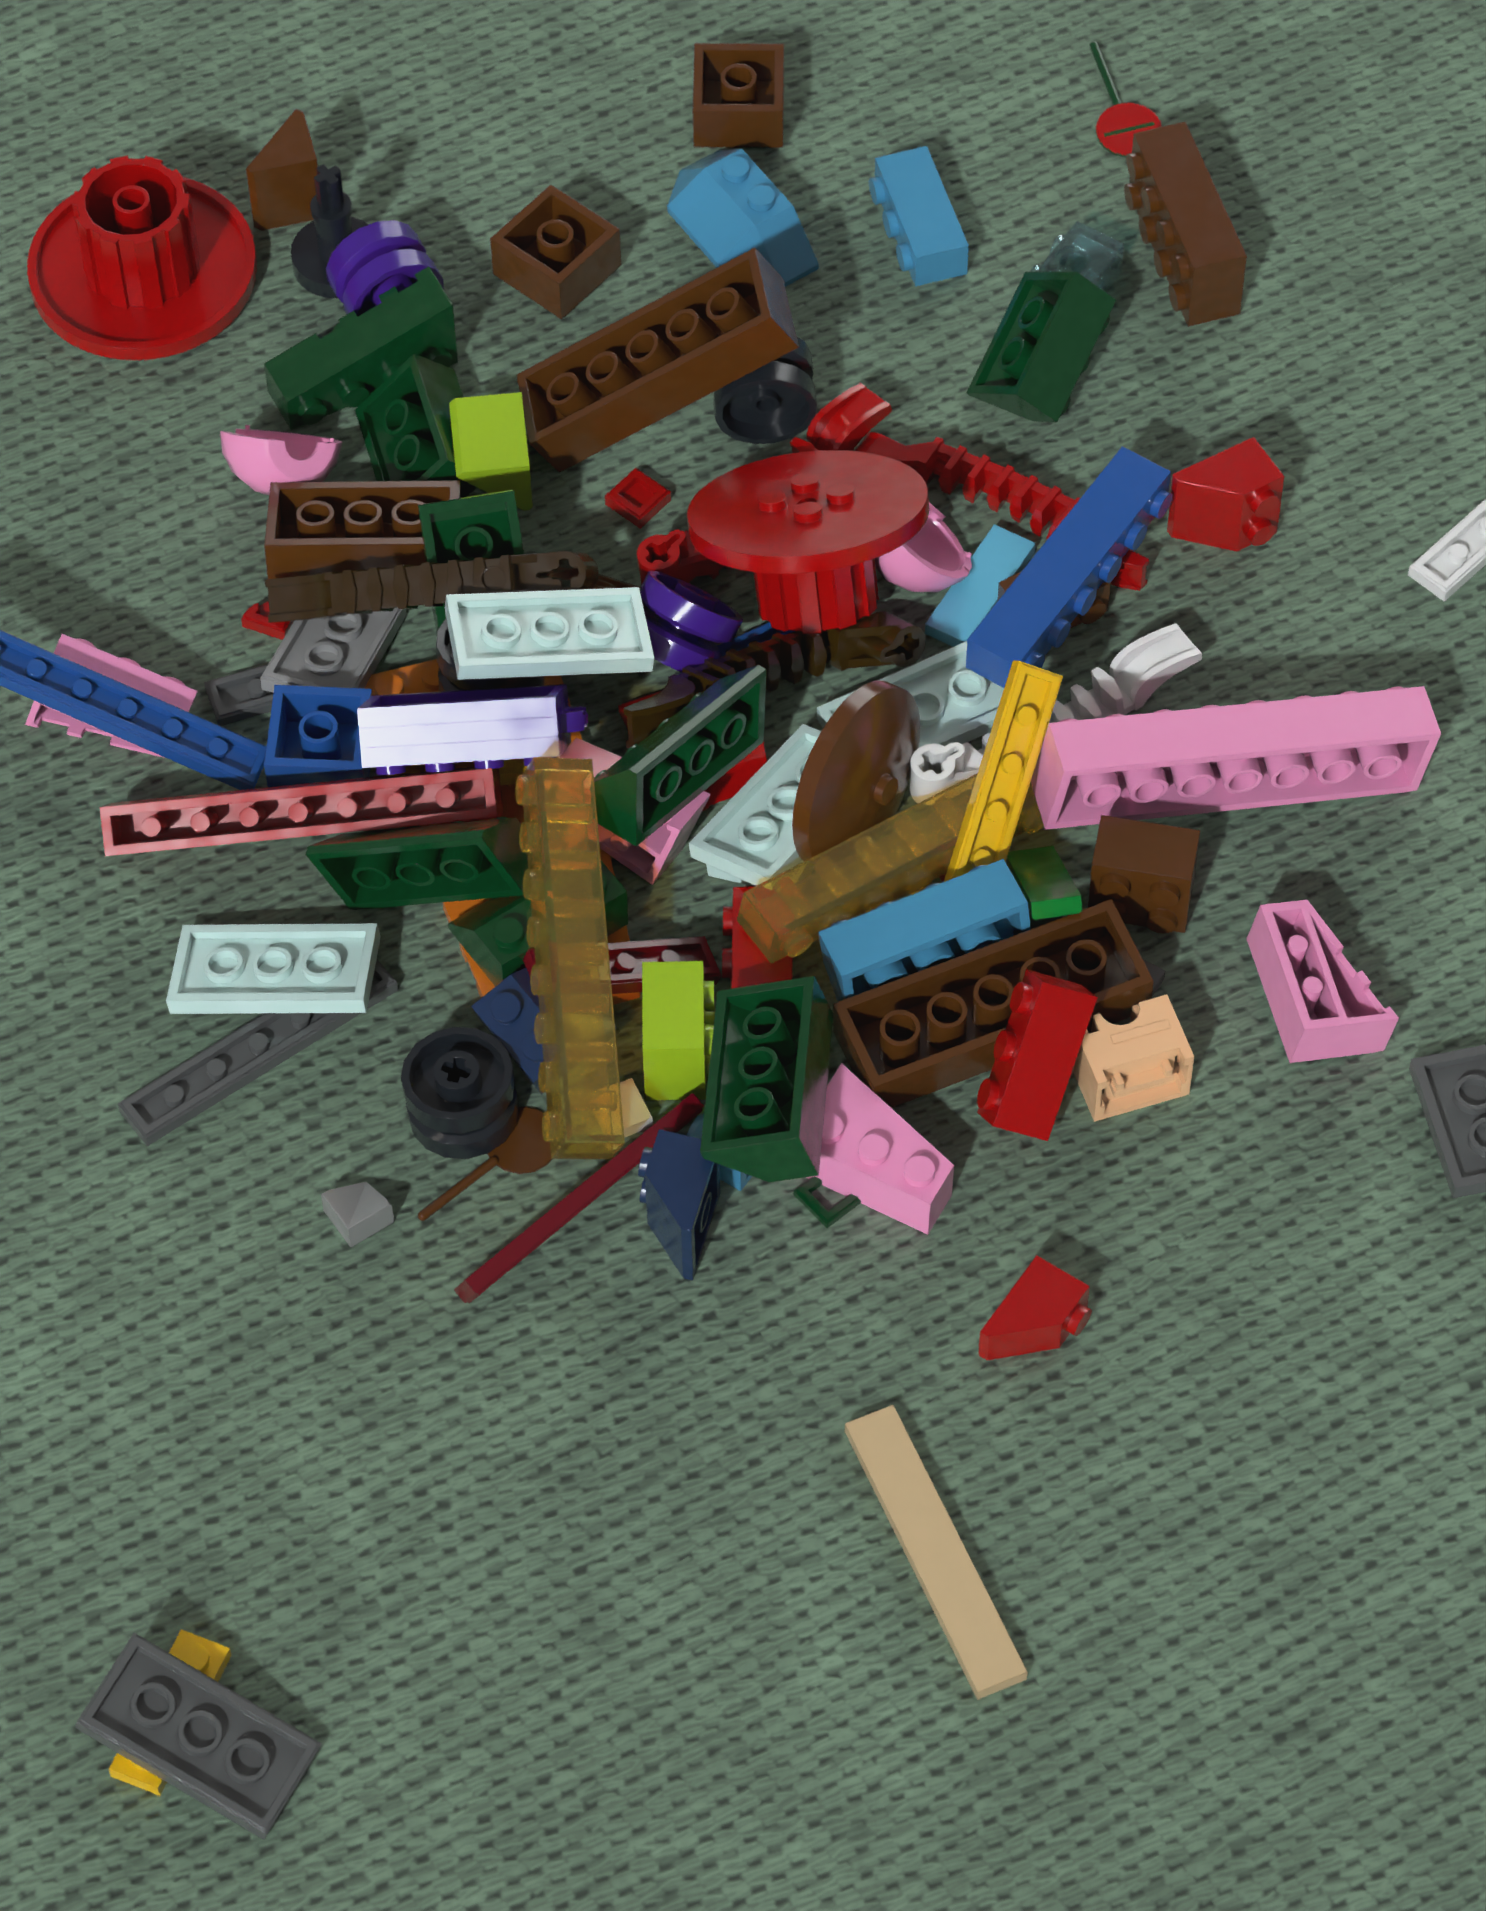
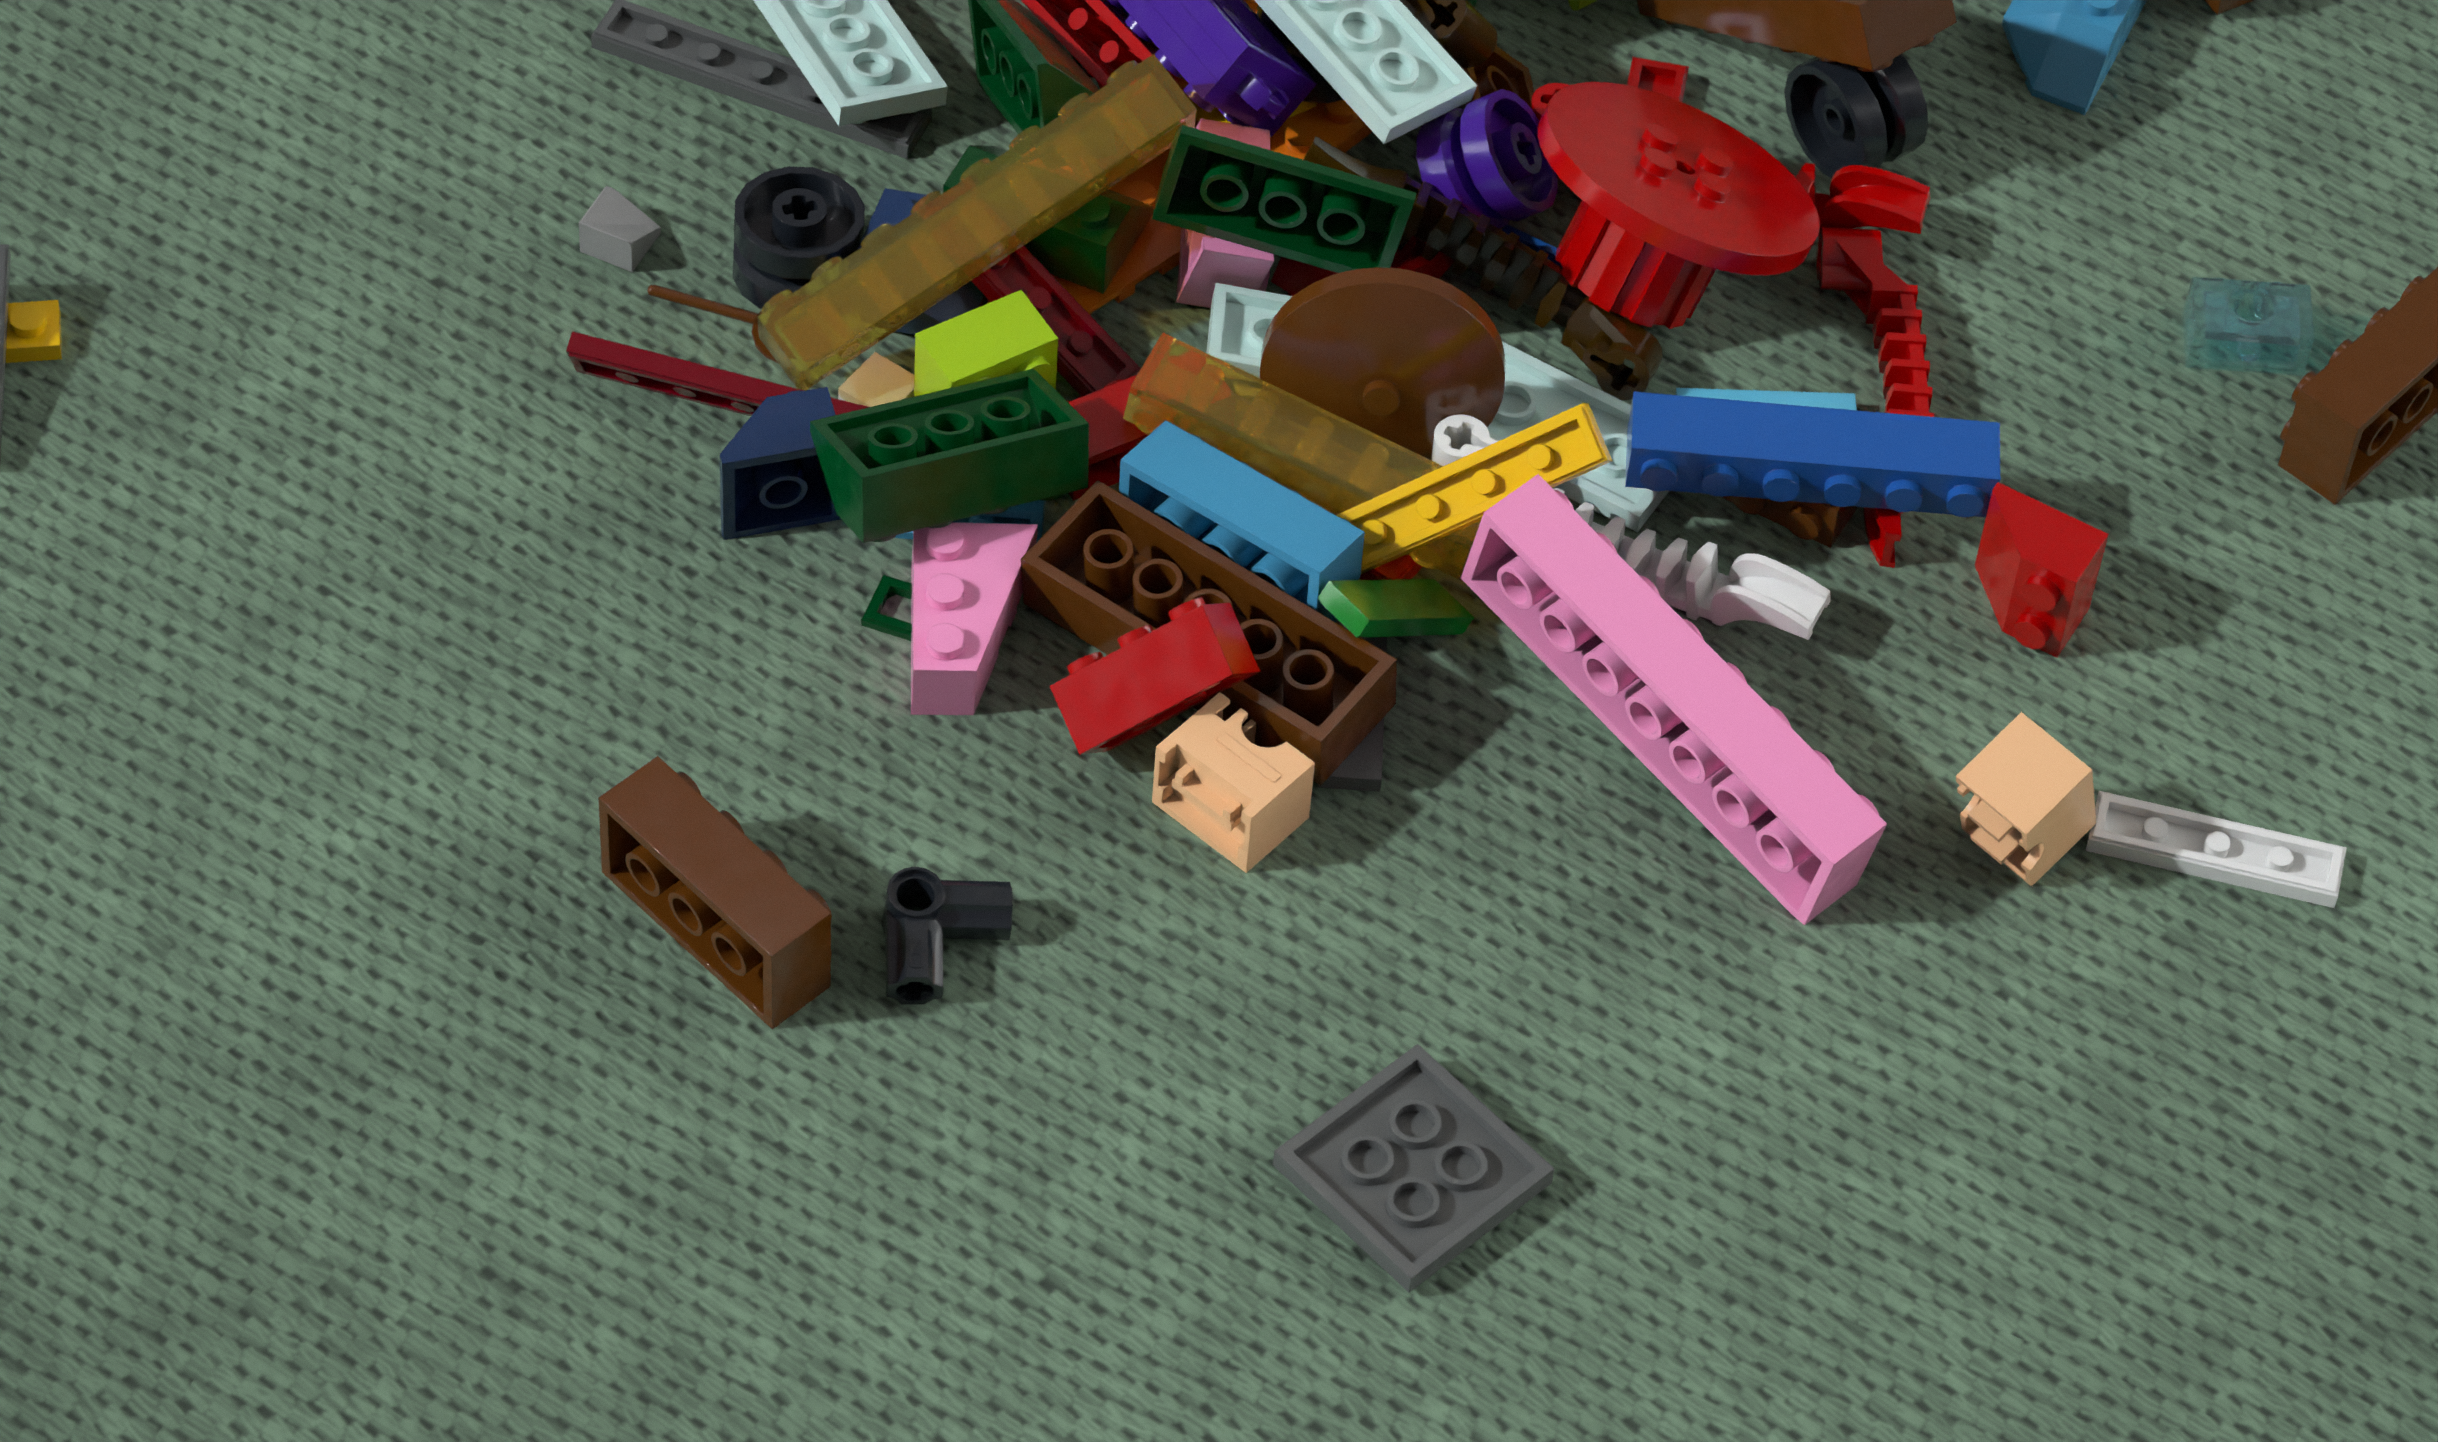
camera: 55 degrees right, 5 degrees down
(919, 216) = (2214, 159): dark azure brick -> none
(928, 560) = (1762, 328): bright pink cylinder -> none
(936, 1552) = (509, 882): tan tile -> none
(1036, 1313) = (857, 830): red slope -> none
(1042, 345) = (2111, 328): dark green slope -> none
(1054, 1425) = (716, 891): none -> reddish brown brick
(1145, 872) = (1470, 693): reddish brown brick -> none
(1150, 1322) = (949, 911): none -> black piece
(1312, 988) = (1439, 909): bright pink wedge -> none
(1422, 604) = (2027, 799): none -> light nougat piece

